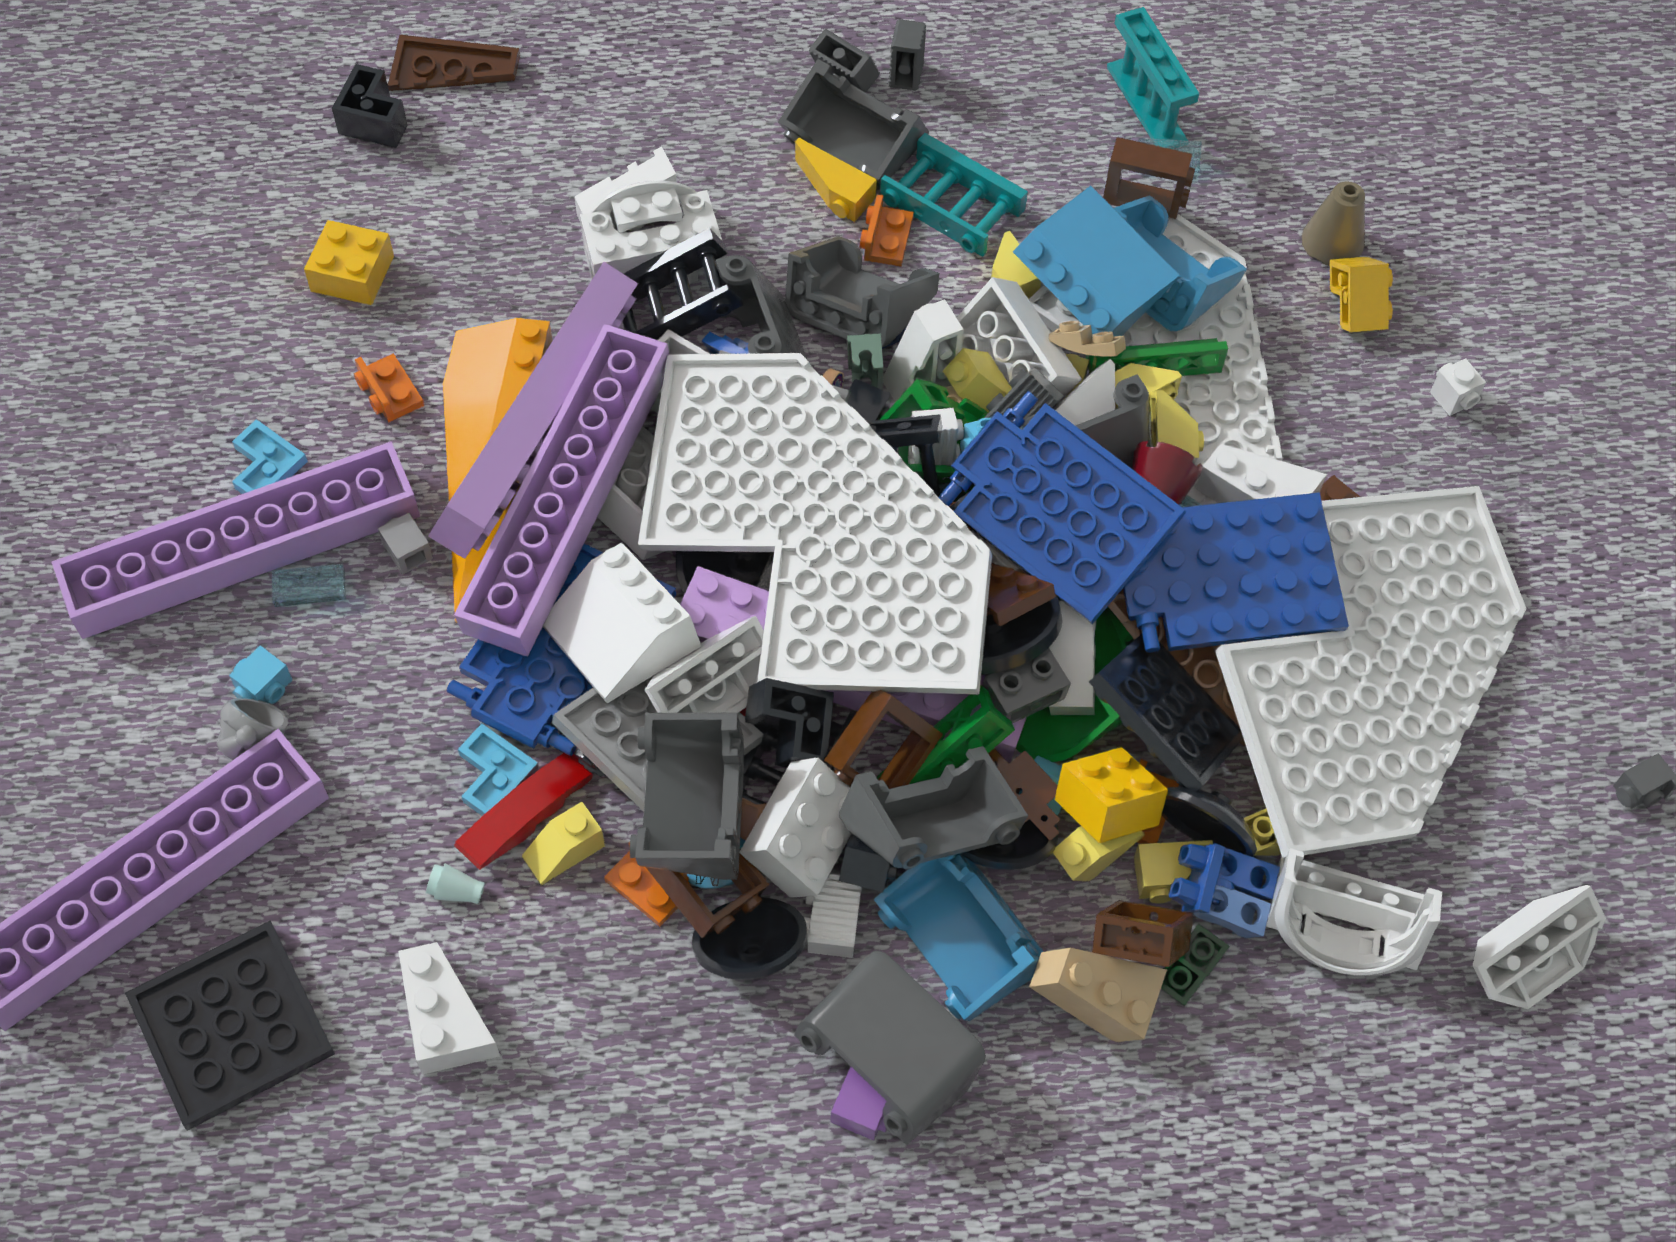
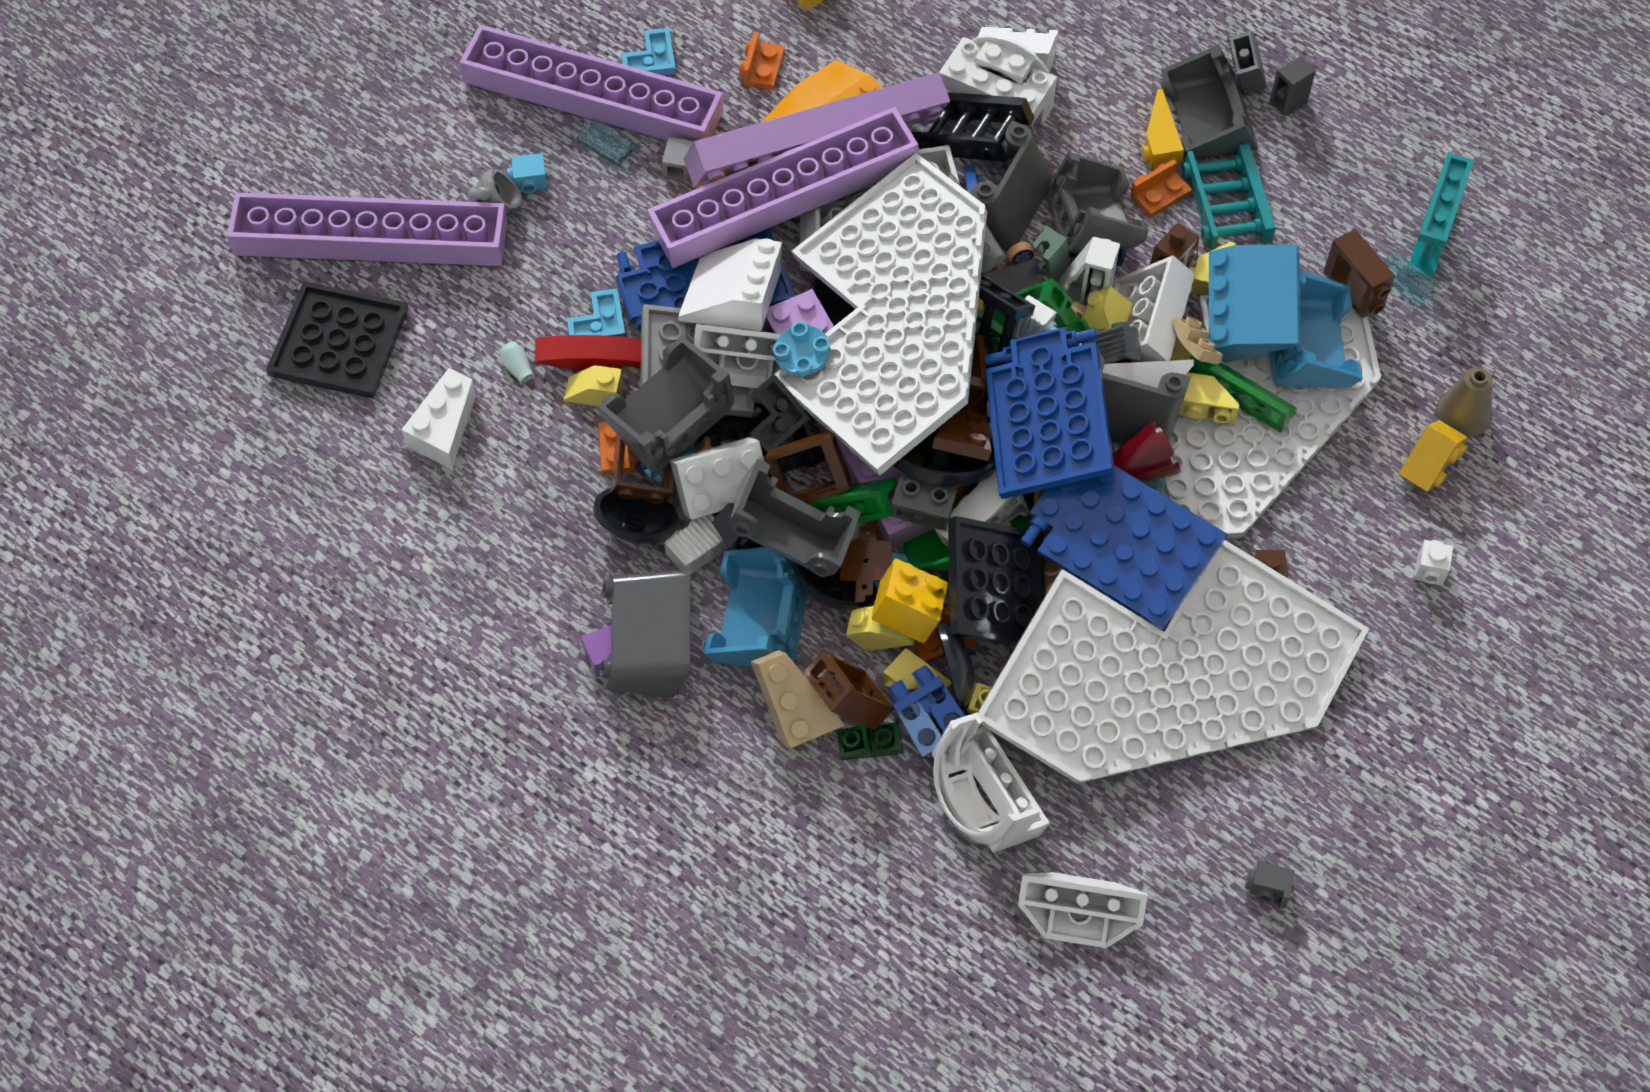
camera: 45 degrees right, 0 degrees up
(767, 631) = (802, 349): none -> medium azure dish
(964, 271) = (1179, 243): none -> reddish brown torso
(1173, 424) = (1196, 436): light yellow slope -> none
(1243, 475) = (1213, 501): white wedge -> none

